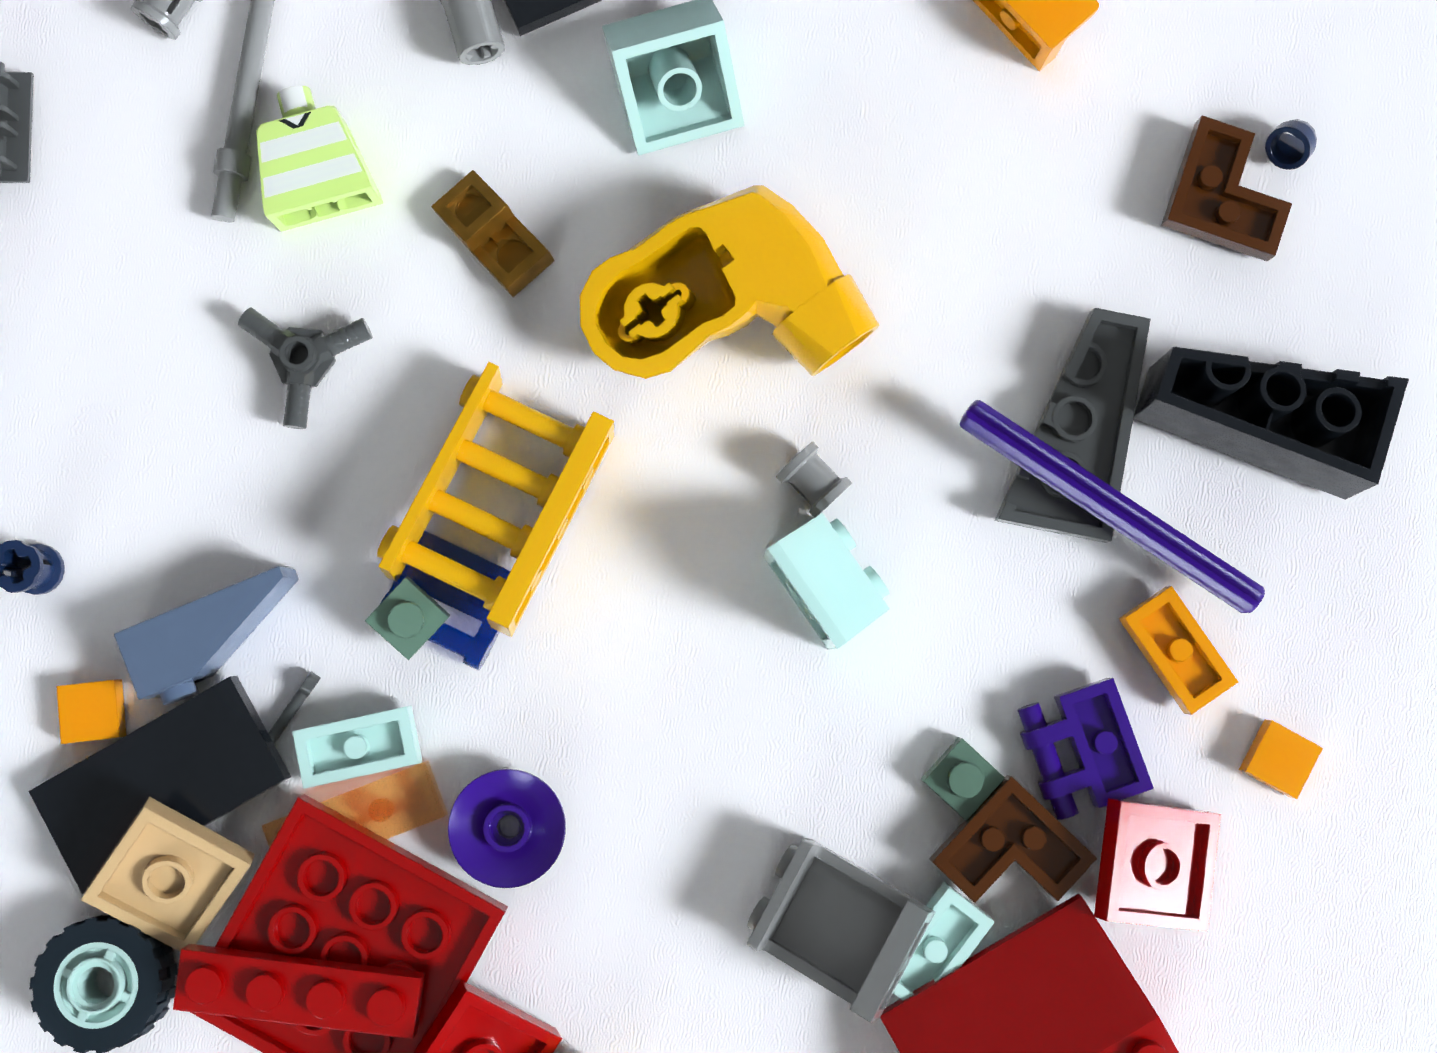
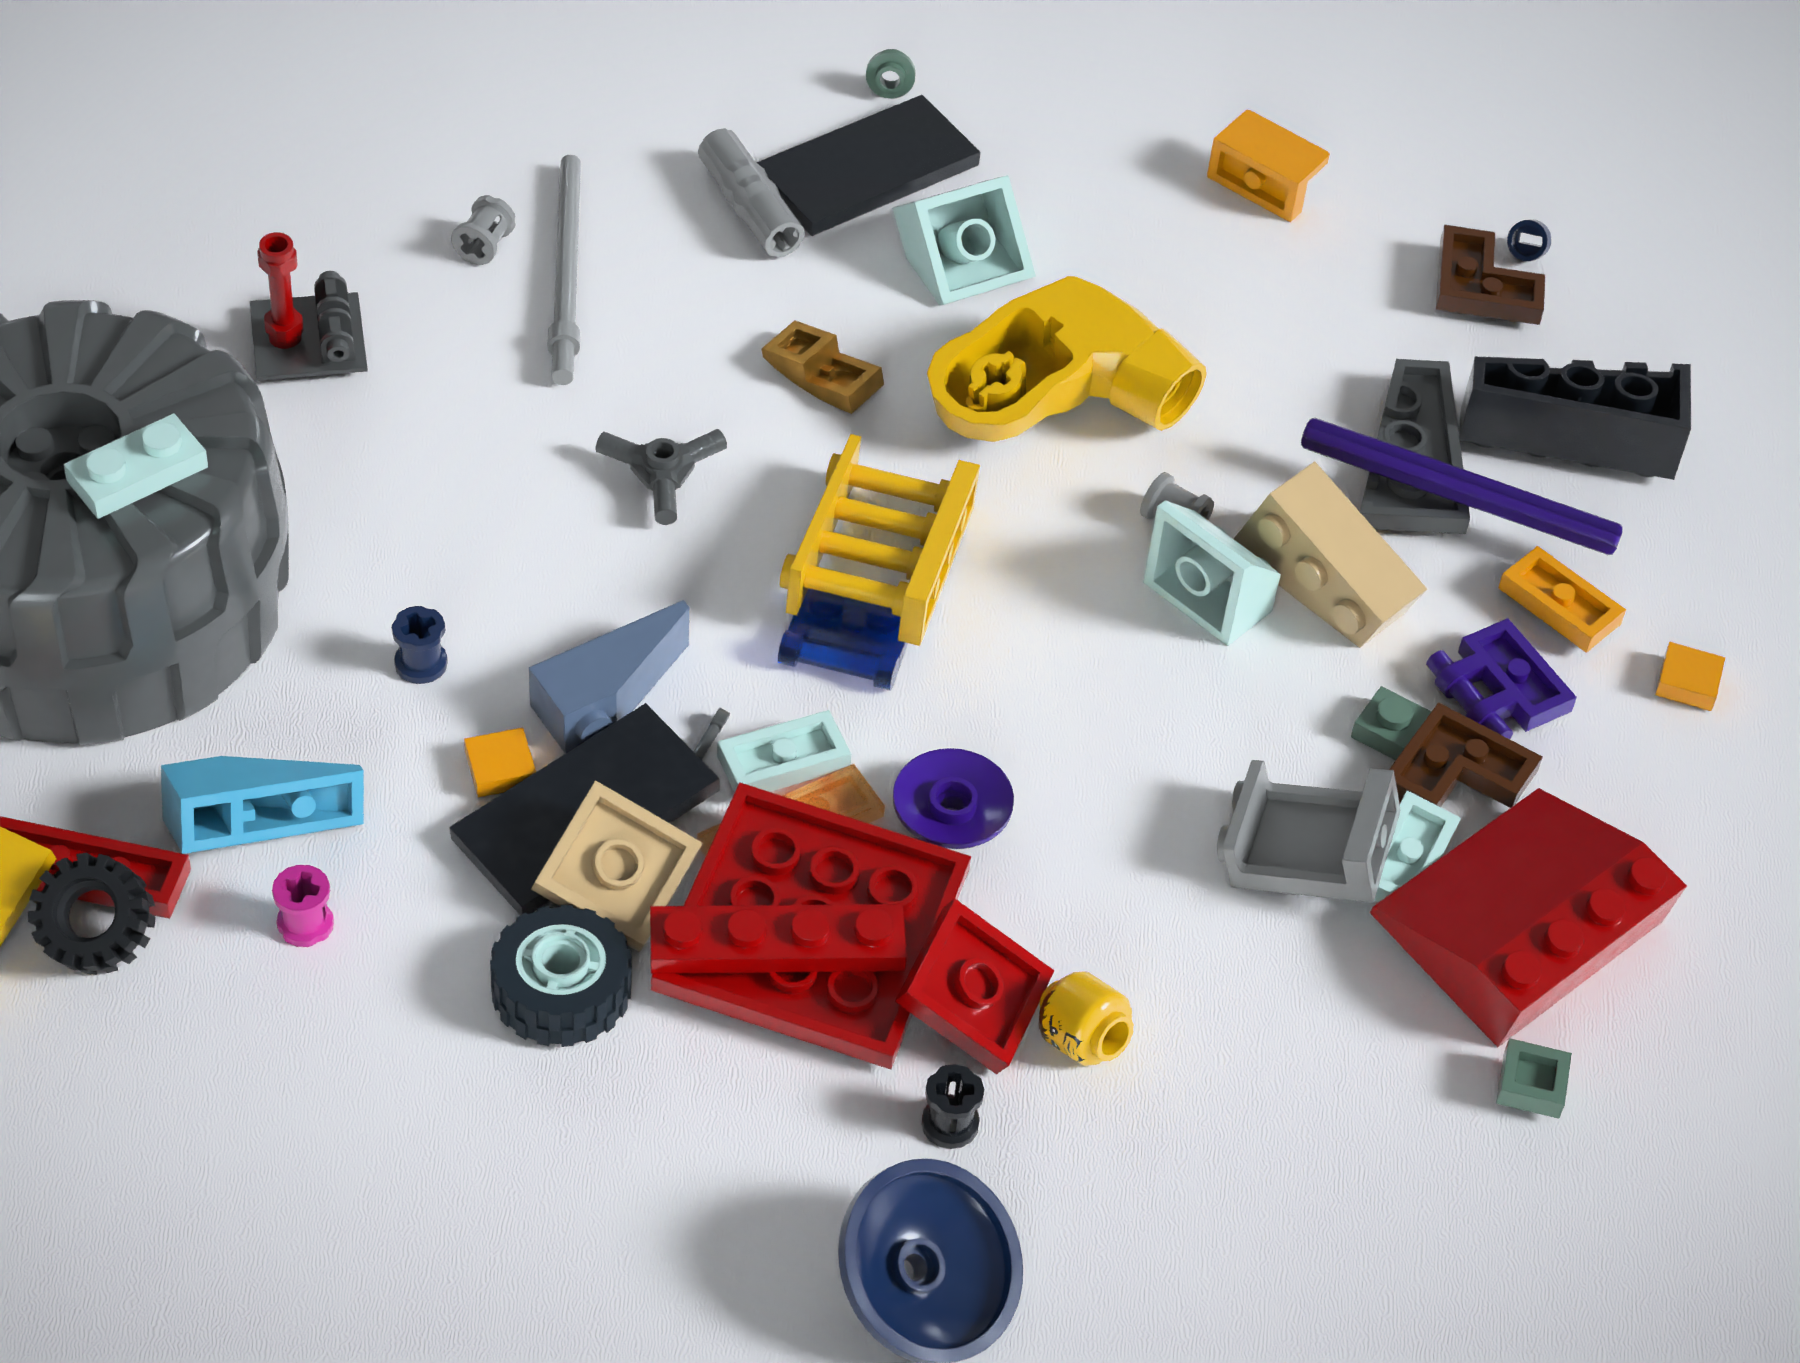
camera: 10 degrees left, 35 degrees down
(310, 164) = (647, 328): yellowish green torso -> none
(407, 618) = (816, 635): sand green plate -> none
(948, 582) = (1331, 556): none -> tan wedge
(1157, 865) = (1602, 755): plate -> none

